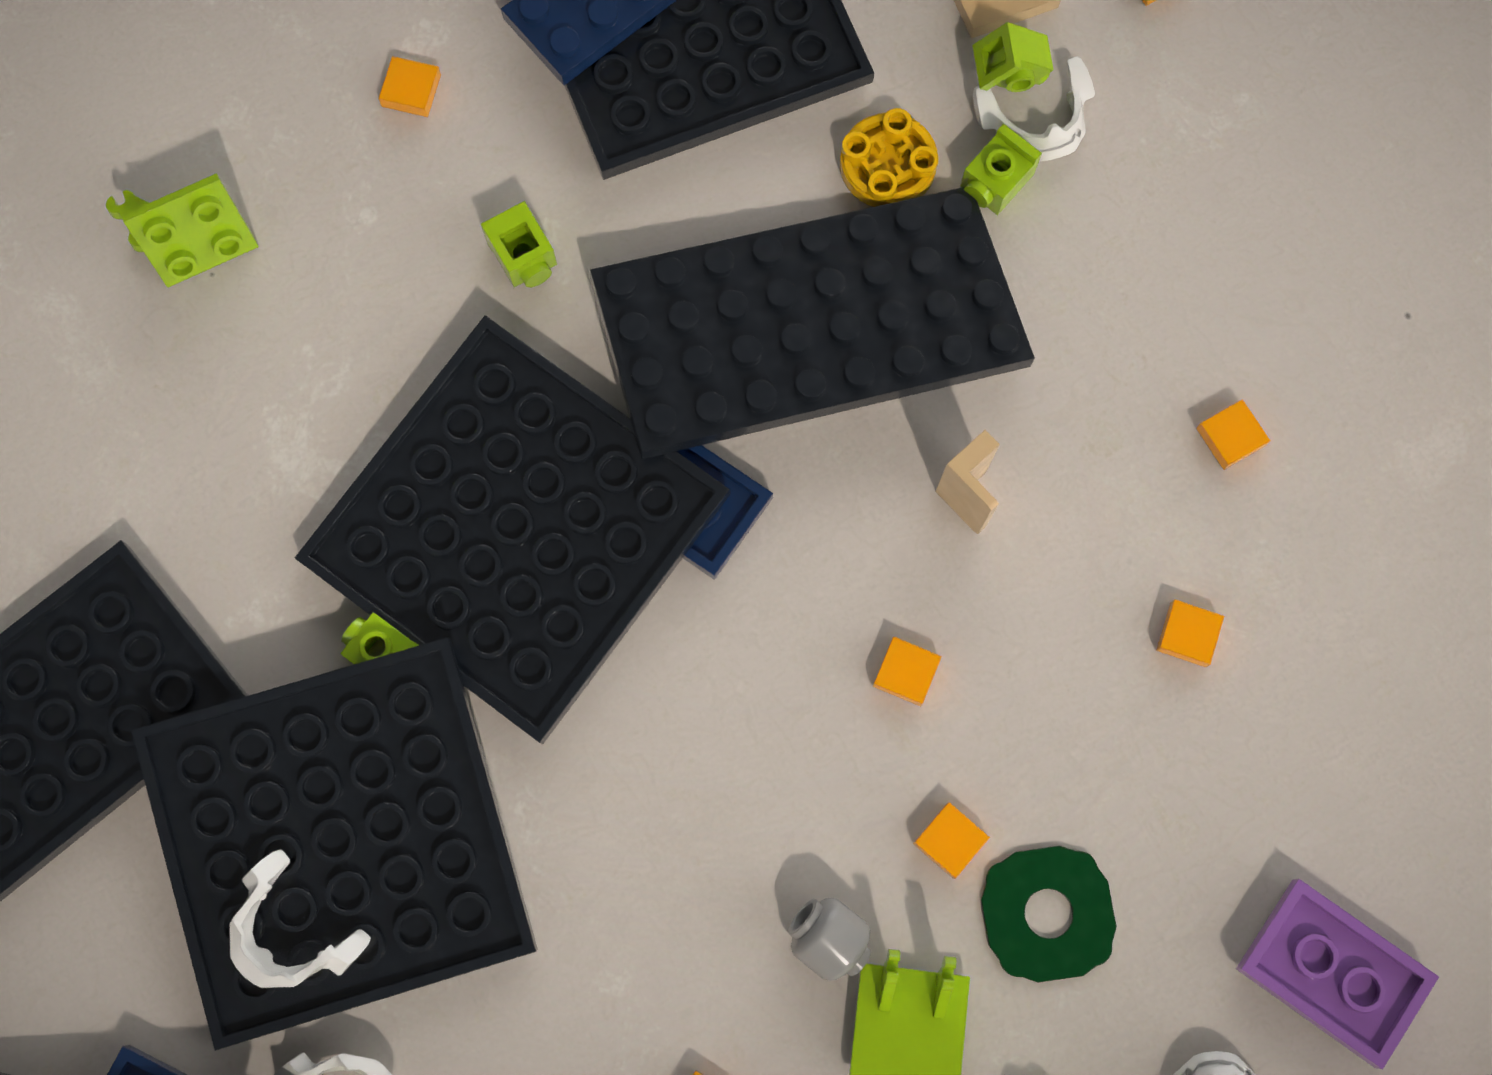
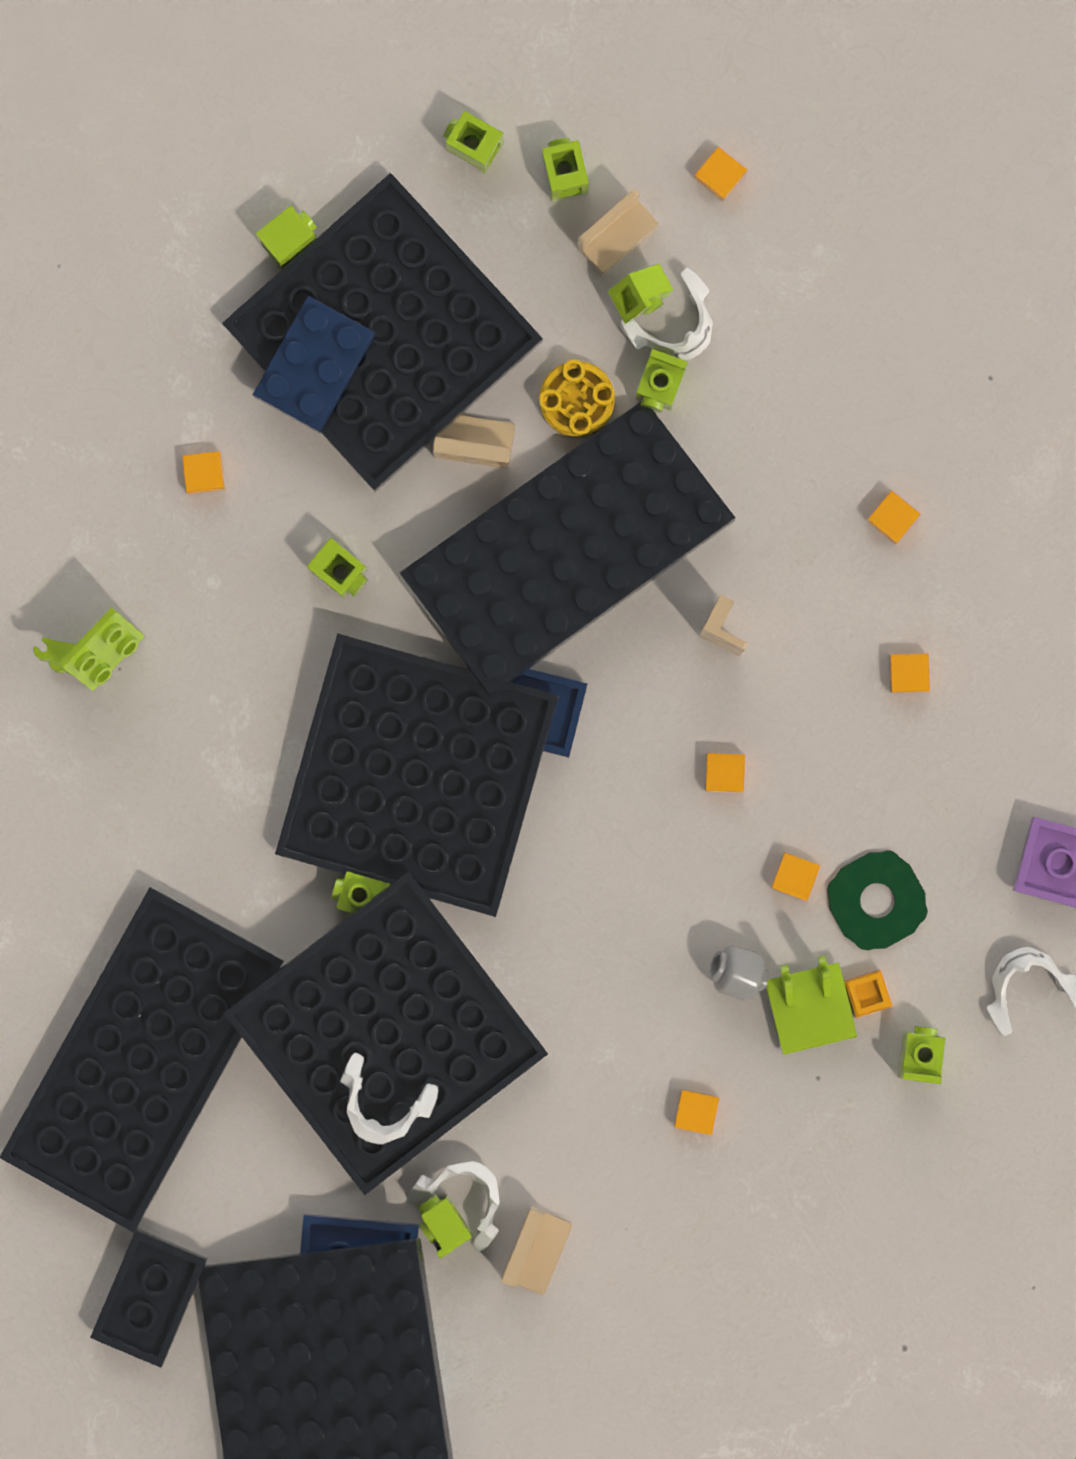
camera: 20 degrees left, 10 degrees up
(746, 166) = (476, 442): none -> tan panel
(994, 1035) = (868, 993): none -> light orange tile

